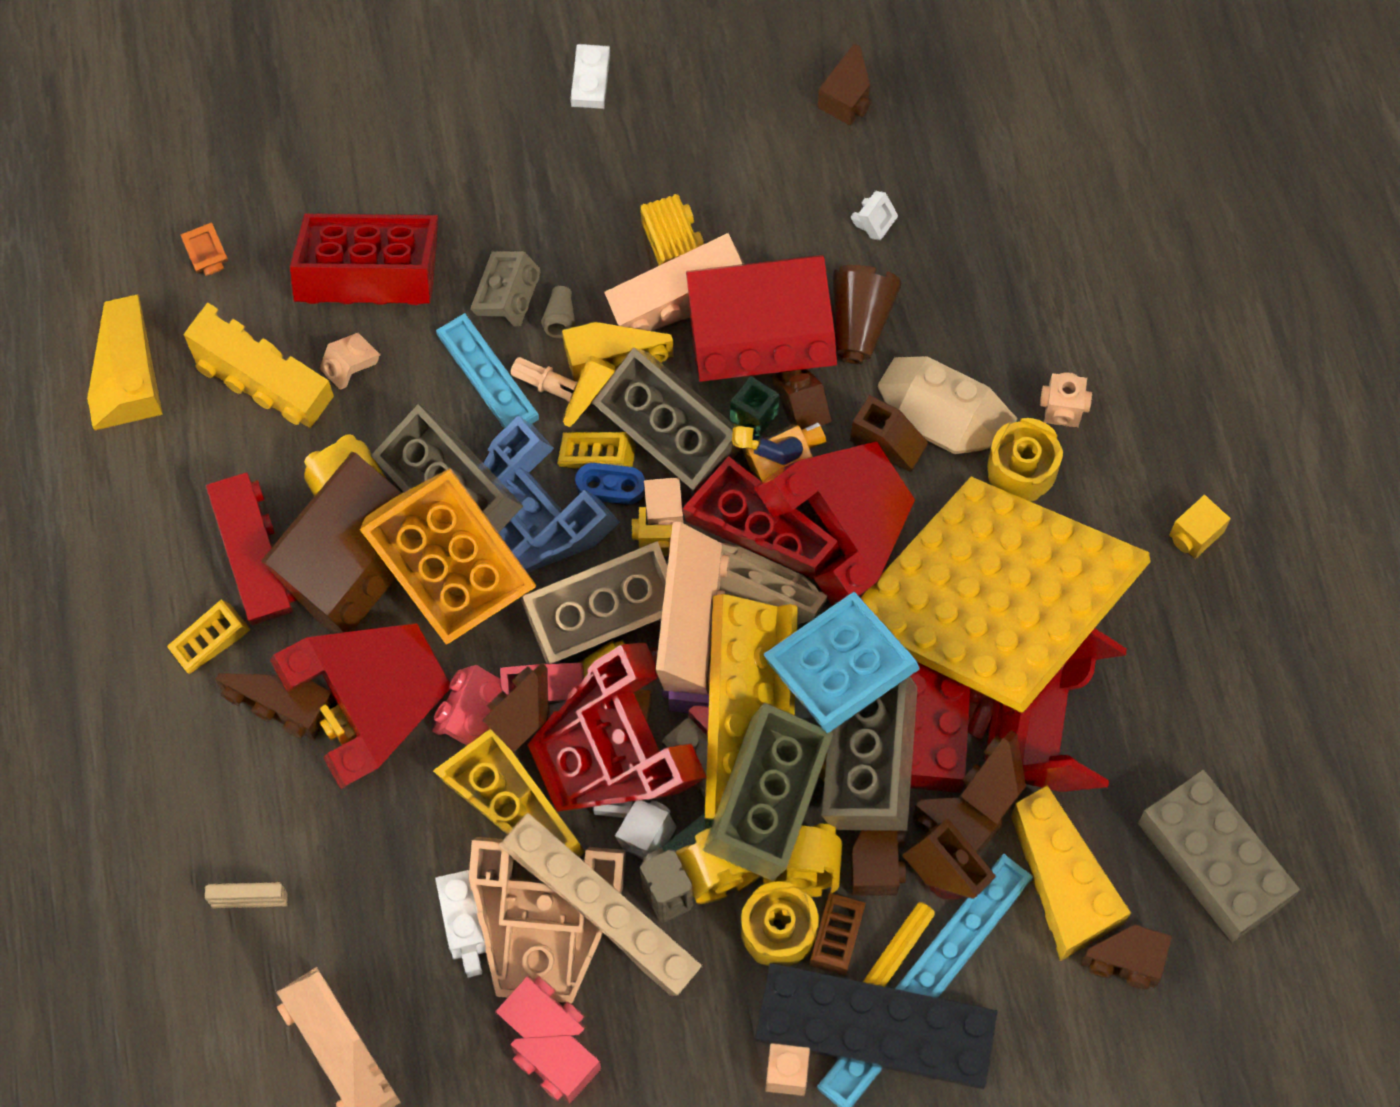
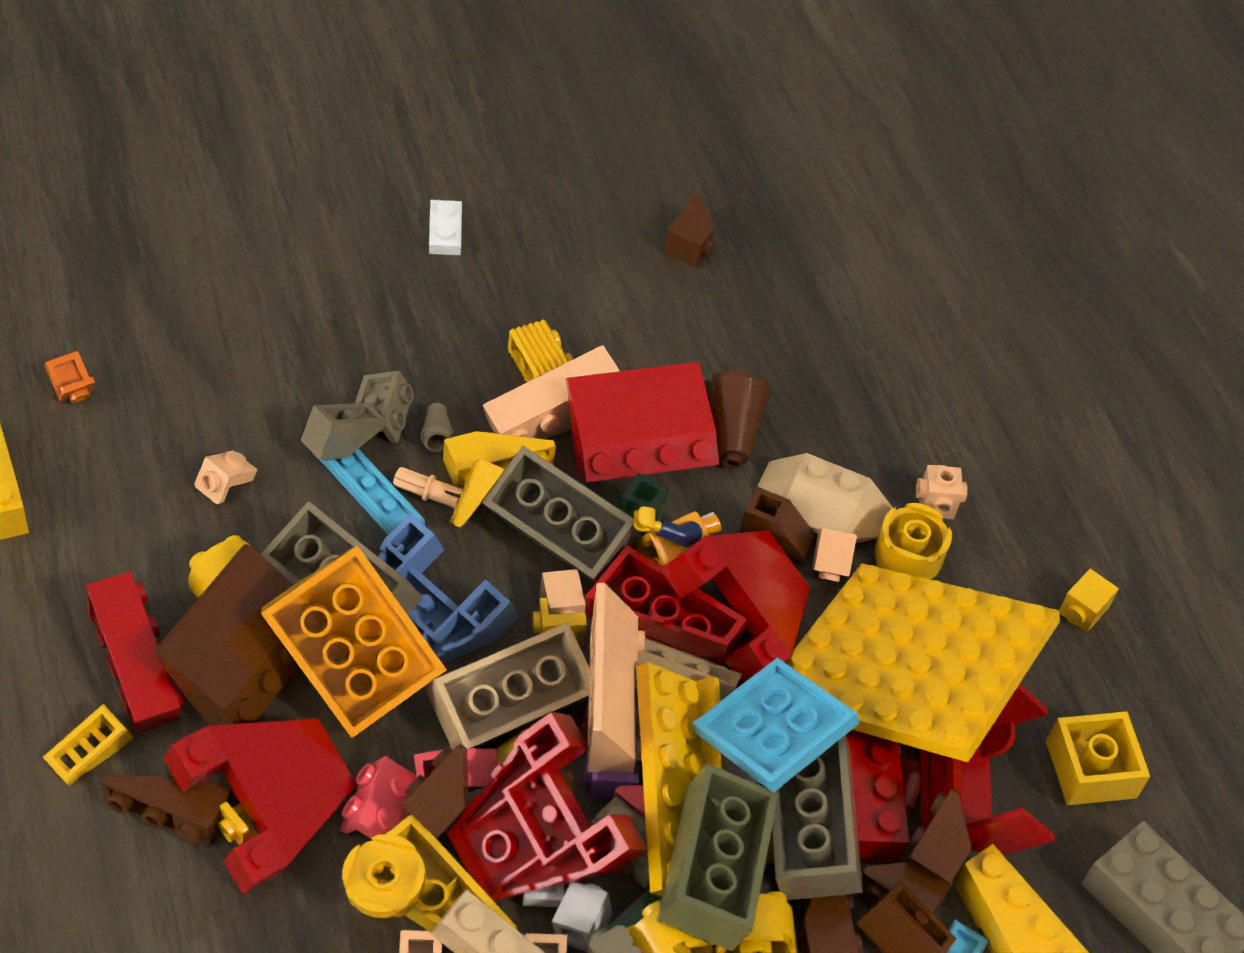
camera: 15 degrees left, 15 degrees down
(256, 368) = (130, 481): yellow wedge -> none
(364, 259) = (235, 385): red slope -> none
(461, 317) = (340, 429): none -> dark tan slope
(471, 806) = (386, 899): none -> yellow plate
(611, 440) = (498, 563): yellow slope -> none
(611, 481) = (507, 578): blue plate -> none
(802, 397) = (689, 493): reddish brown slope -> none
(875, 215) = (734, 338): white tile -> none
(941, 467) = (833, 554): none -> light nougat brick
(1173, 699) = (1097, 758): none -> yellow brick

